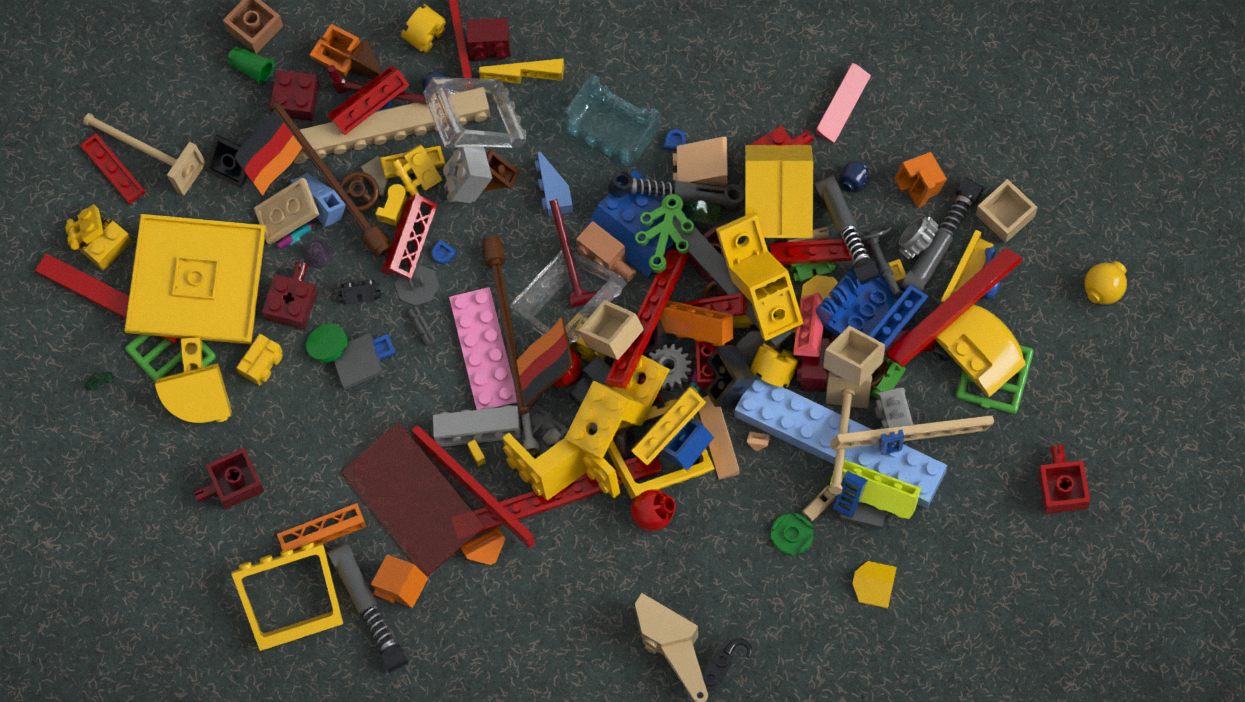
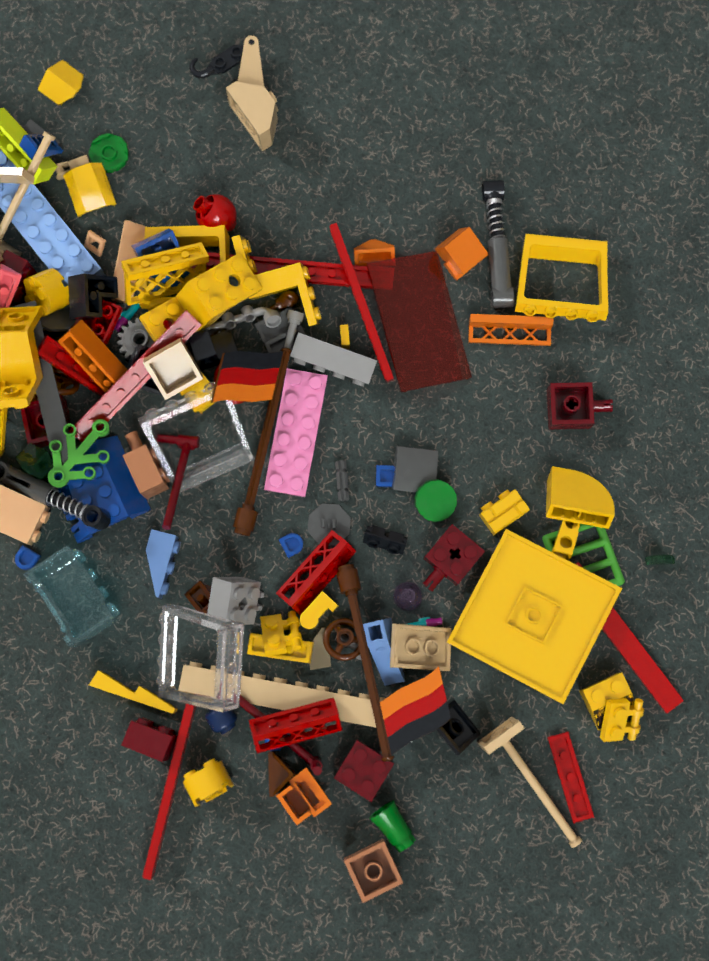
camera: 160 degrees left, 10 degrees up
(789, 487) = (89, 188): none -> yellow slope

